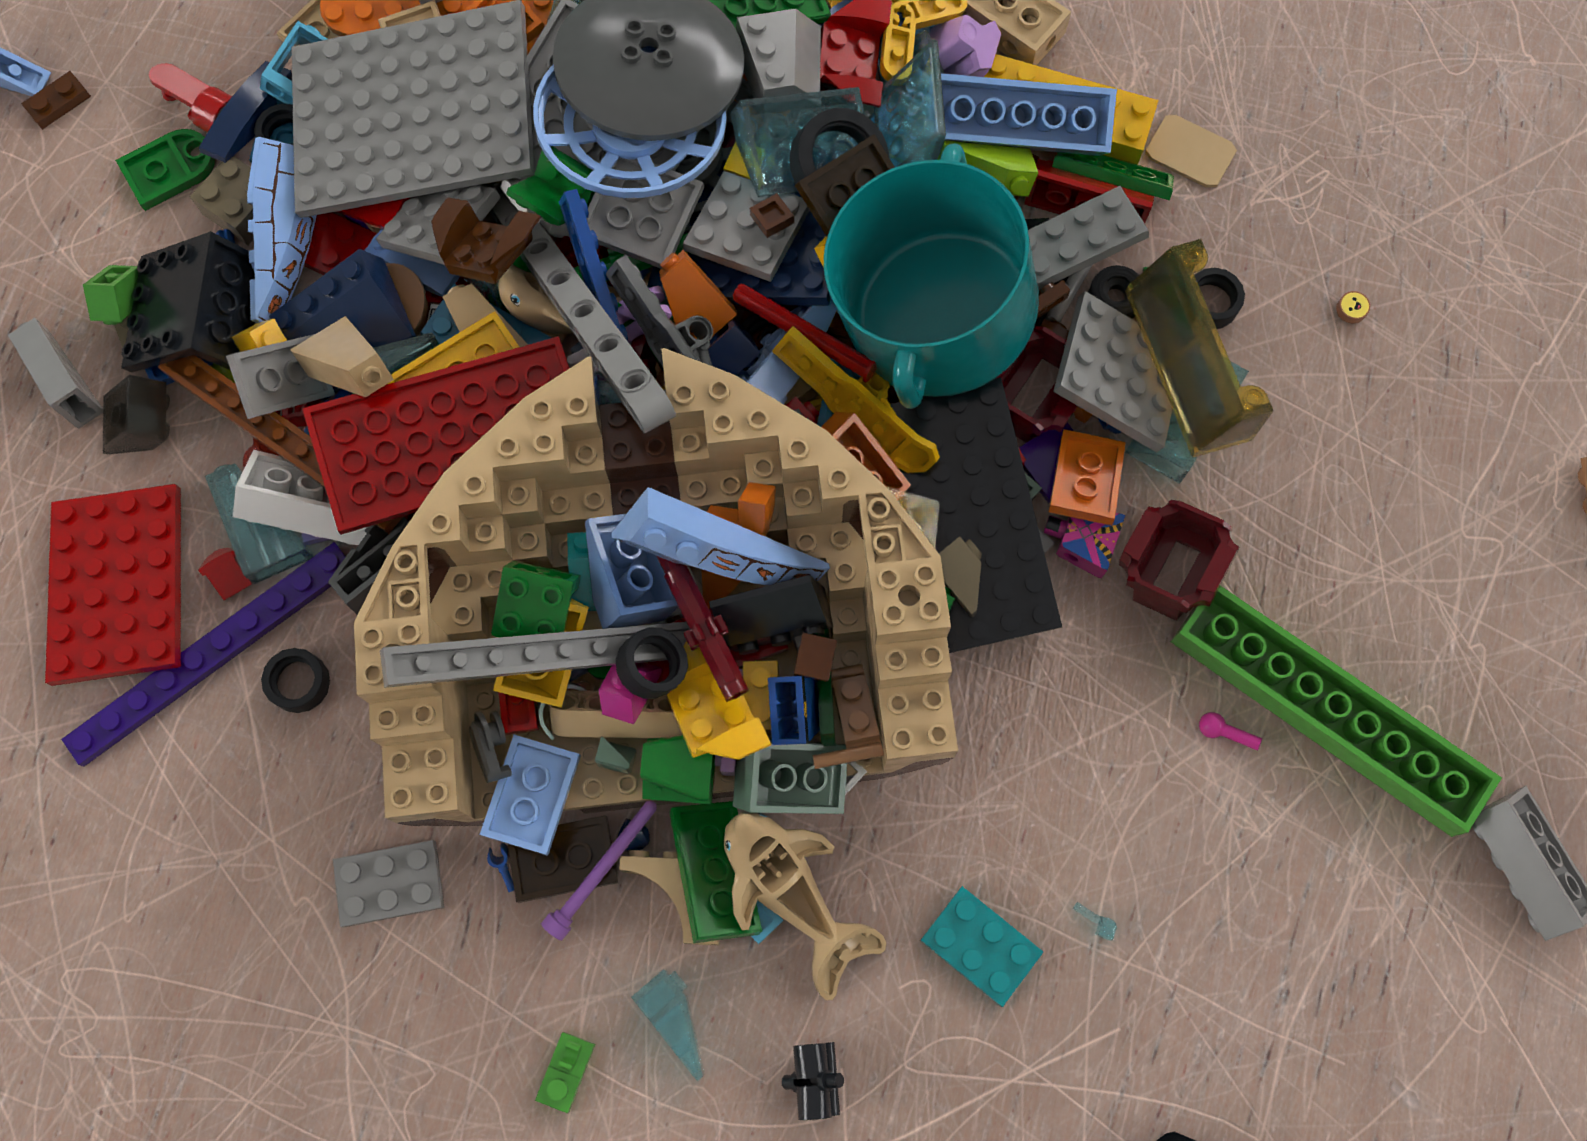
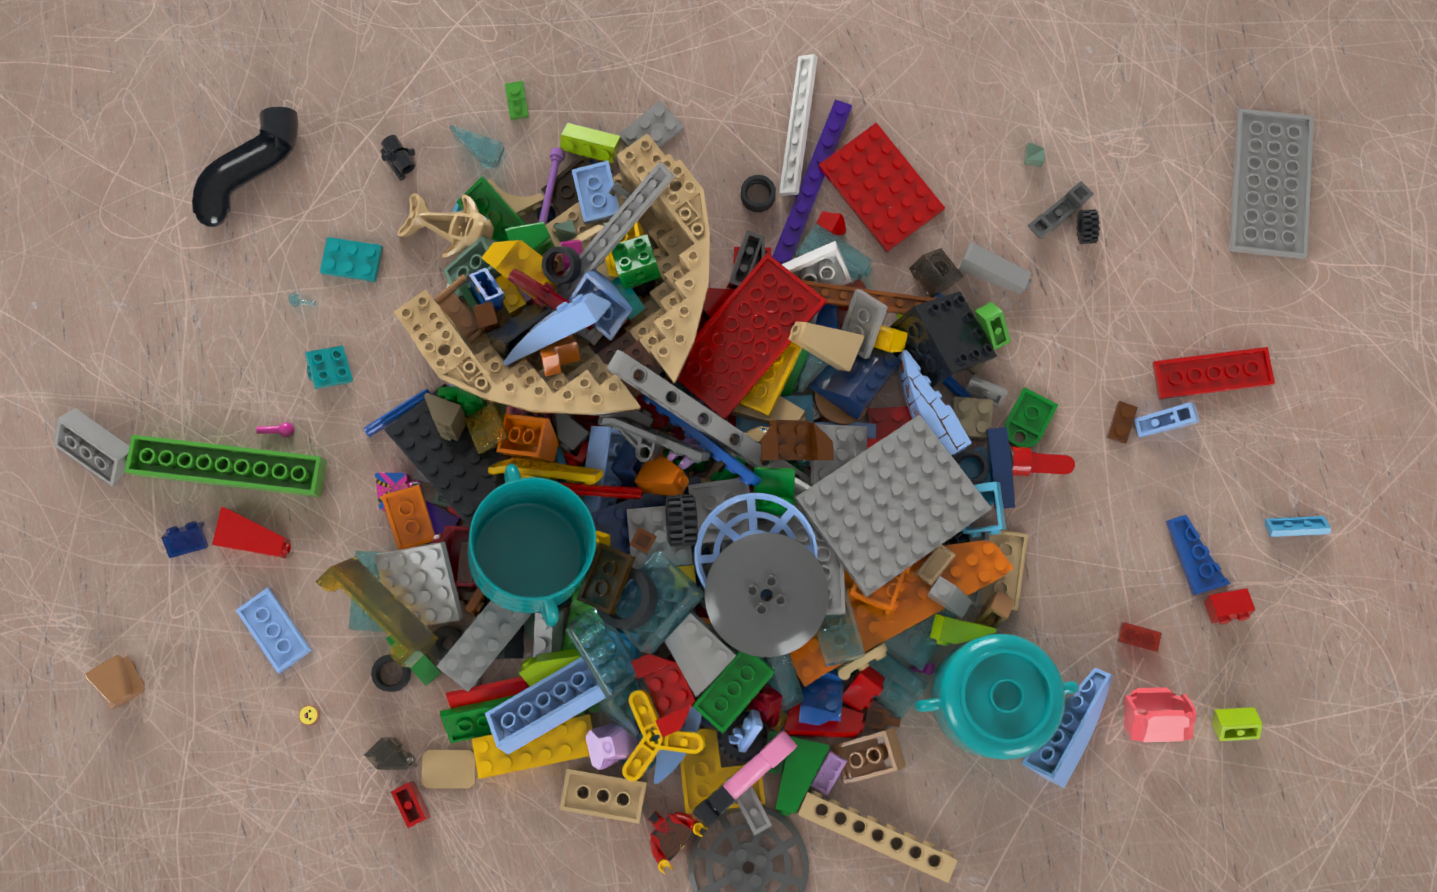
camera: 155 degrees right, 5 degrees up
(158, 757) = (798, 125): none -> white plate
(186, 217) = (984, 390): none -> light grey plate
(492, 913) = (590, 142): none -> lime brick
(702, 198) = (681, 520): none -> black tyre
(1028, 653) = (394, 414): none -> blue axle
(1103, 778) = (328, 367): none -> teal plate
(1155, 540) = (322, 498): dark red piece -> none
(1263, 122) = (410, 804): none -> red brick
(1264, 186) = (389, 755): none -> clear smoke slope
(1339, 588) = (243, 534): none -> red slope
(1356, 444) = (273, 630): none -> light blue tile
(1440, 639) = (184, 539): none -> clear blue bracket

